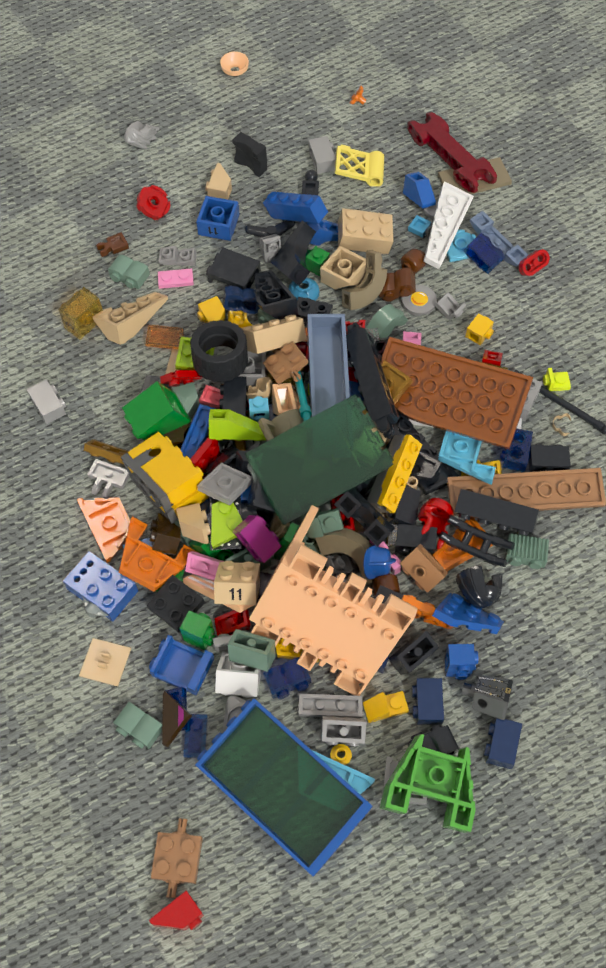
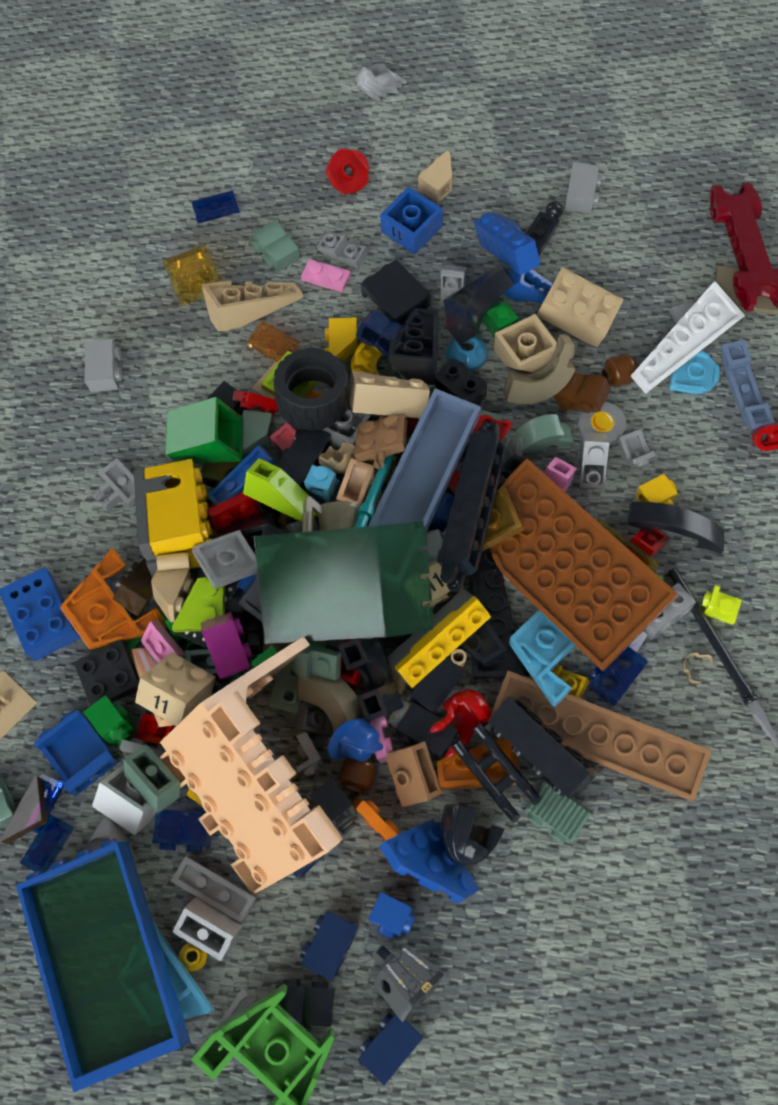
camera: 30 degrees right, 5 degrees up
(67, 262) = (215, 207): none -> clear blue plate
(104, 450) = (132, 451): pearl gold plate -> none
(107, 522) = (88, 540): wing -> none
(115, 243) = (280, 206): reddish brown plate -> none
(186, 502) = (172, 561): none -> tan piece
(234, 59) = (537, 26): light nougat piece -> none
(250, 153) = (492, 153): black brick -> none
(270, 230) = (473, 263): black piece -> none
(358, 97) = (668, 129): orange plant -> none
(371, 166) = (637, 225): light yellow piece -> none
(385, 706) = (278, 923): yellow slope -> none
(413, 653) = (343, 876): black brick -> none
(419, 190) = (677, 280): blue slope -> none
(419, 226) = (653, 327): dark azure plate -> none
(427, 324) = (593, 460): none -> light grey slope
(484, 253) = (717, 396): clear blue brick -> none
(502, 338) = (677, 520): none -> black slope
(549, 458) = (652, 705): black brick -> none

